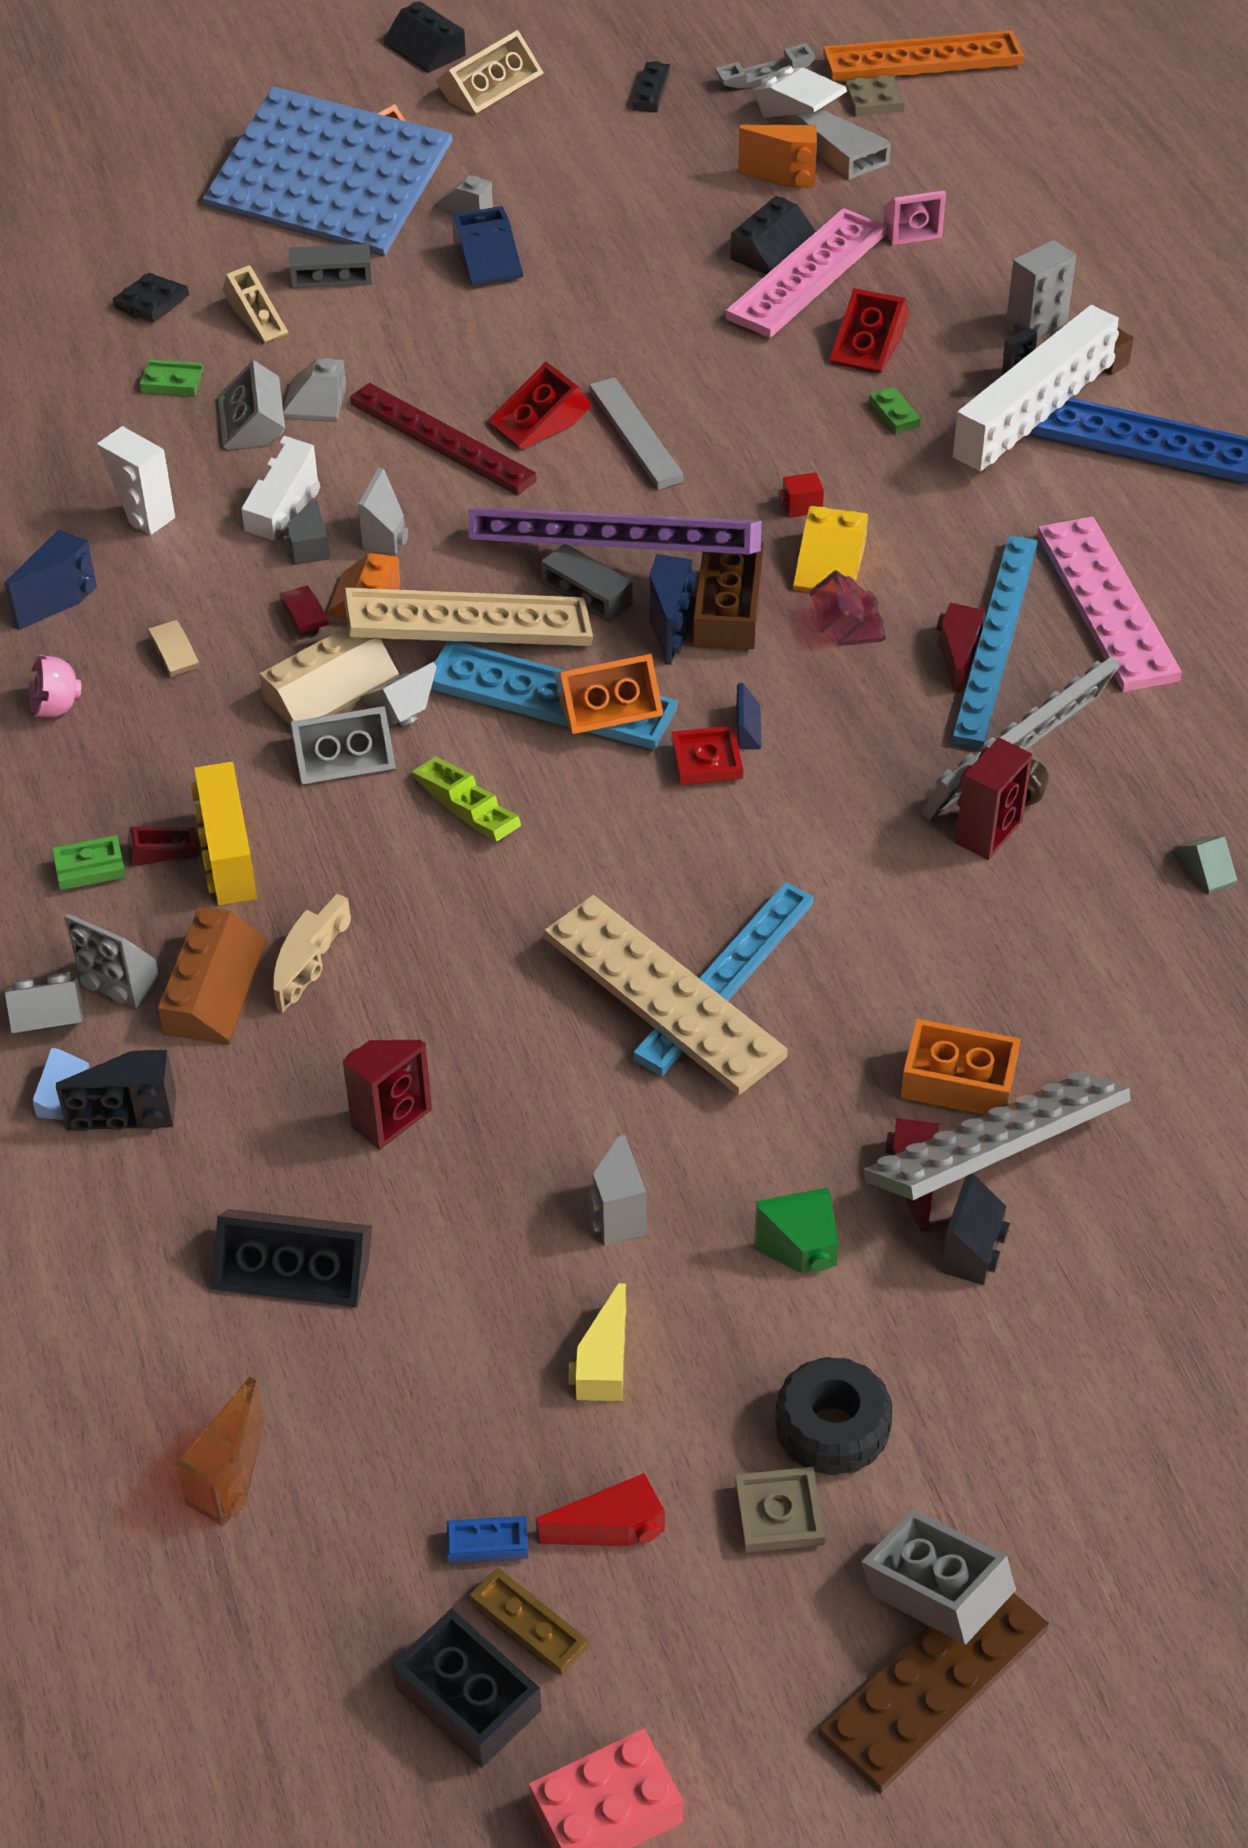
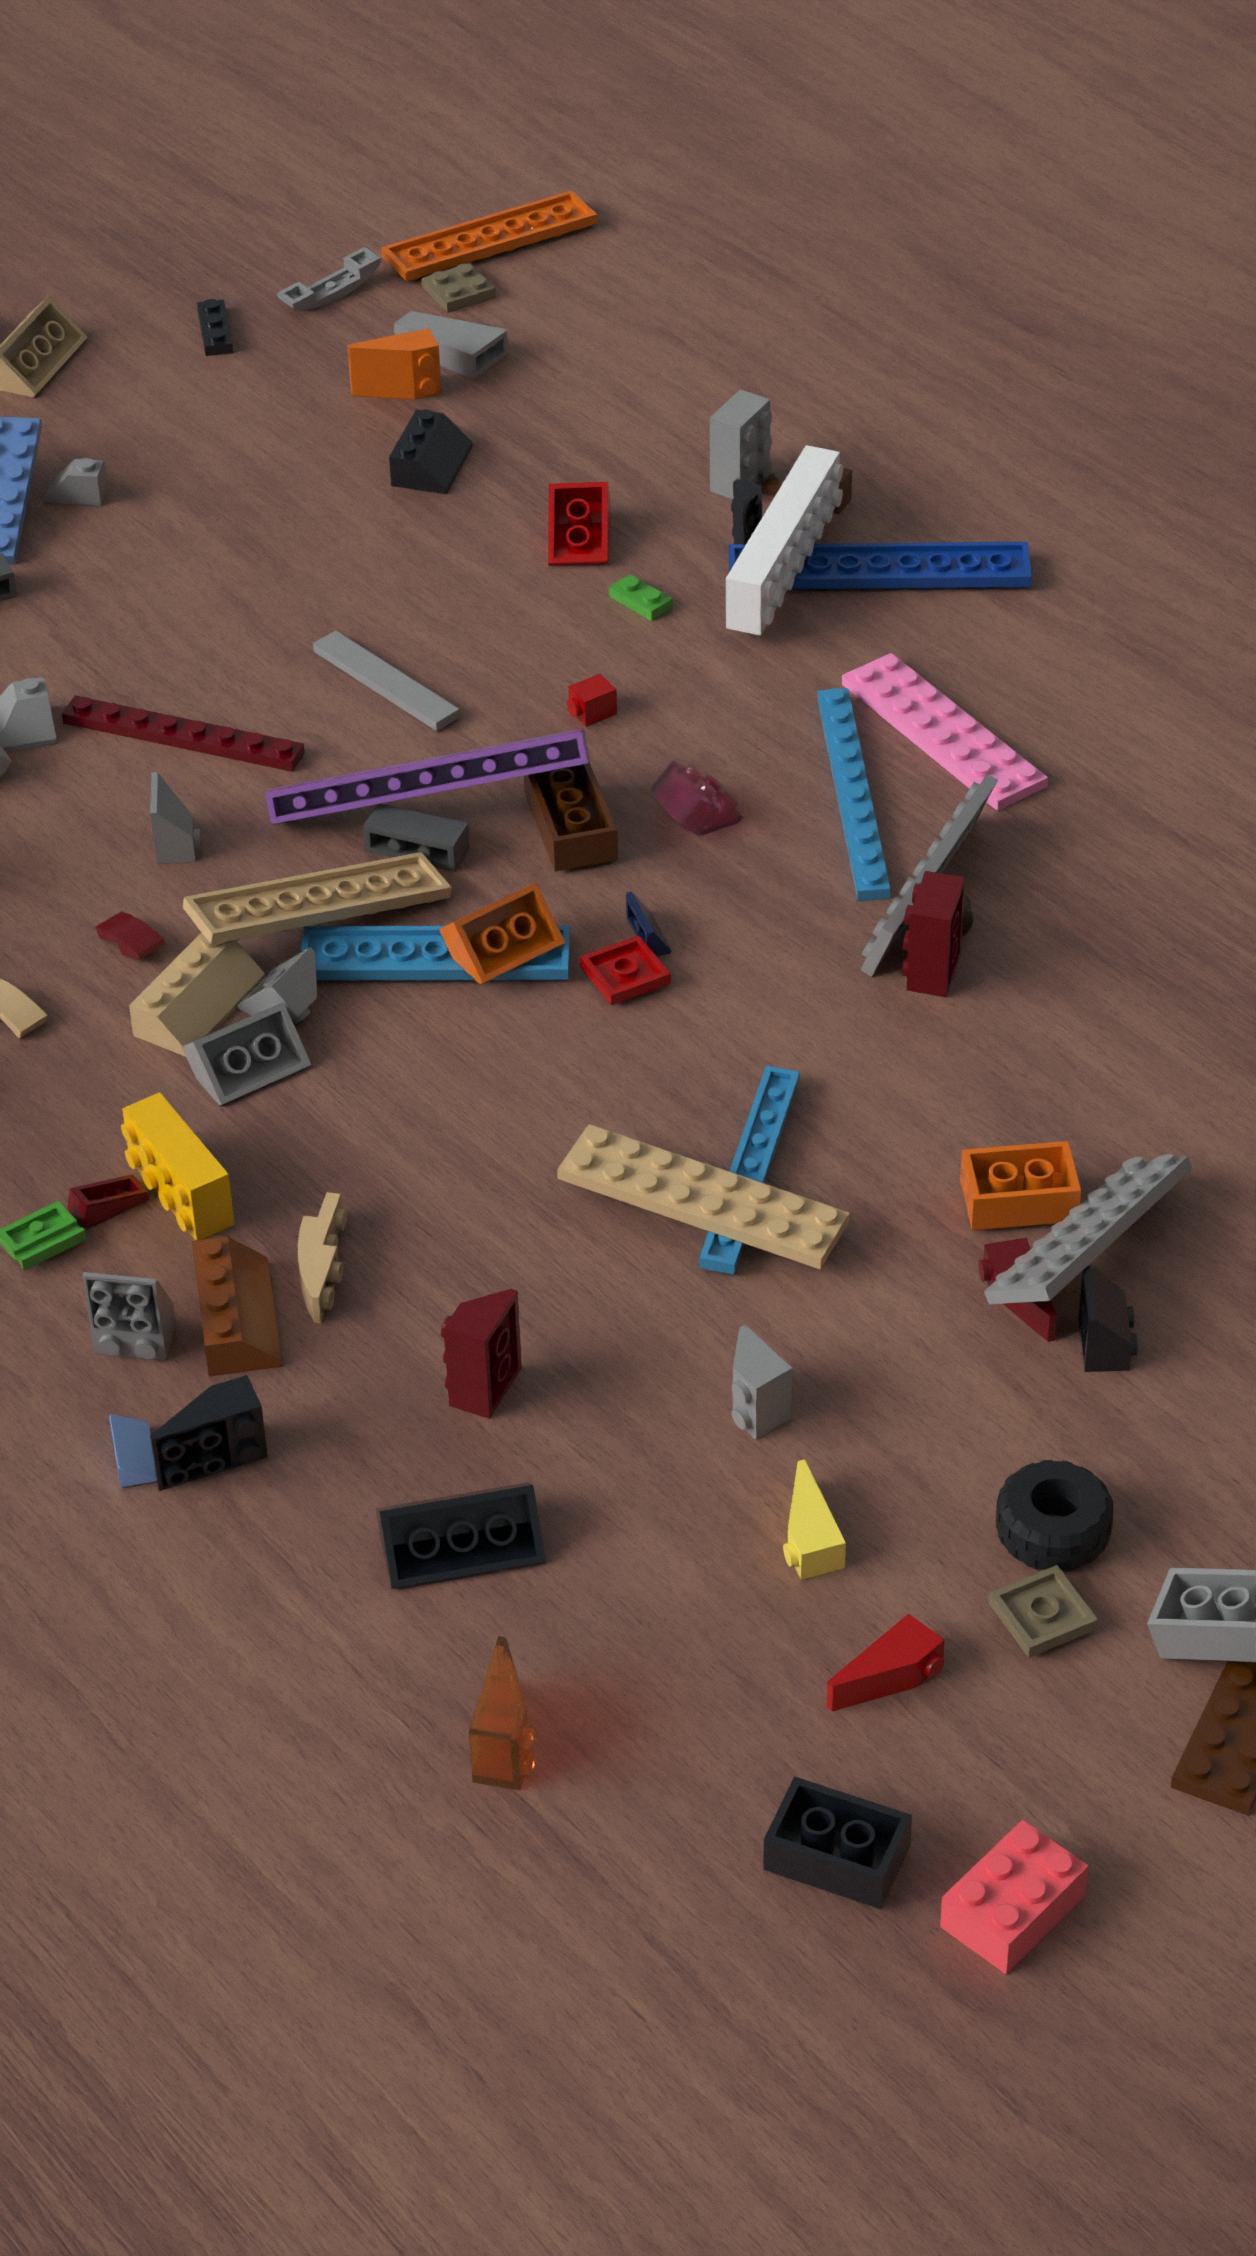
camera: 20 degrees left, 5 degrees down
(44, 1003) = (75, 1378): light grey slope -> none
(284, 490) = (49, 823): white wedge -> none
(307, 536) = (97, 862): dark grey slope -> none
(370, 572) = (167, 896): orange slope -> none
(462, 797) = (394, 1071): lime slope -> none
(486, 245) = (128, 528): dark blue slope -> none
(487, 1539) = (784, 1719): blue plate -> none
(529, 1621) = (861, 1774): pearl gold plate -> none
(540, 407) = (275, 677): red slope -> none
(671, 601) = (517, 833): dark blue slope -> none
(795, 92) = (381, 300): white slope -> none
(798, 1230) = (942, 1367): green slope -> none
(806, 273) = (481, 482): bright pink plate -> none
(830, 543) = (646, 742): yellow slope -> none
(915, 217) = (568, 401): bright pink slope -> none
(959, 639) = (819, 801): dark red slope -> none
(1208, 862) = (1156, 943): slope -> none

